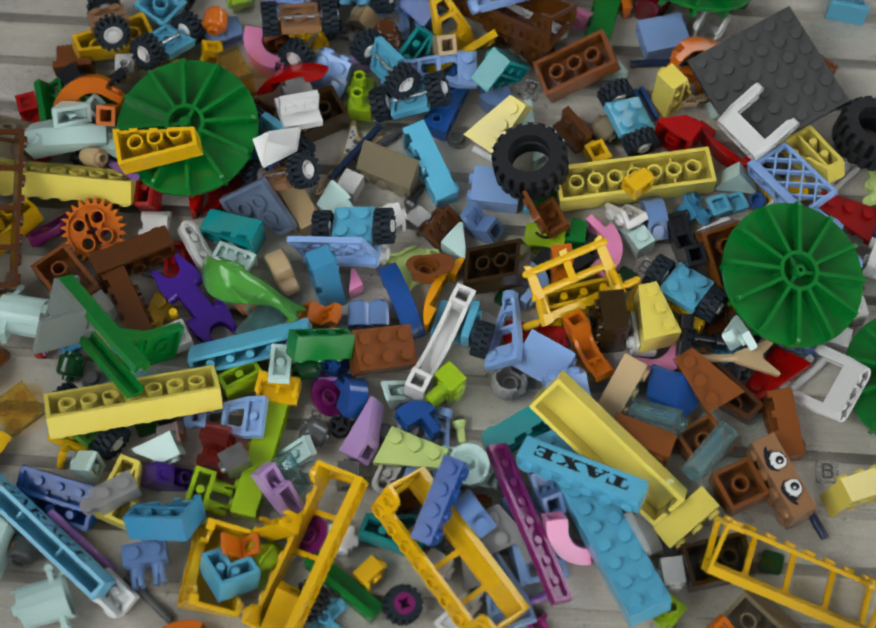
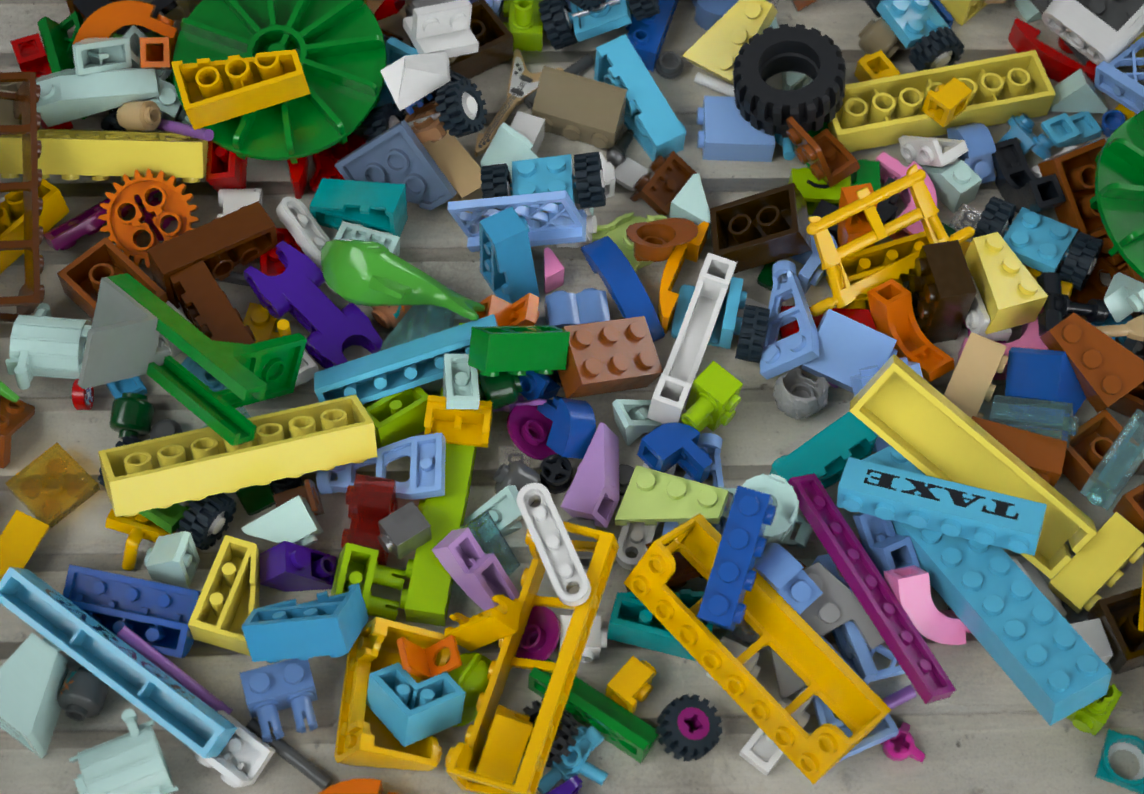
camera: 10 degrees left, 5 degrees down
(111, 494) = (219, 594): light grey brick -> none
(282, 272) = (440, 258): tan animal -> none
(323, 481) = (553, 544): none -> white plate
(354, 153) = (525, 91): dark blue bar -> none
(459, 424) = (734, 457): yellowish green piece -> none
(481, 226) = (723, 178): medium blue brick -> none
(573, 130) = (850, 42): reddish brown bracket -> none
(678, 132) = (989, 33): red slope -> none

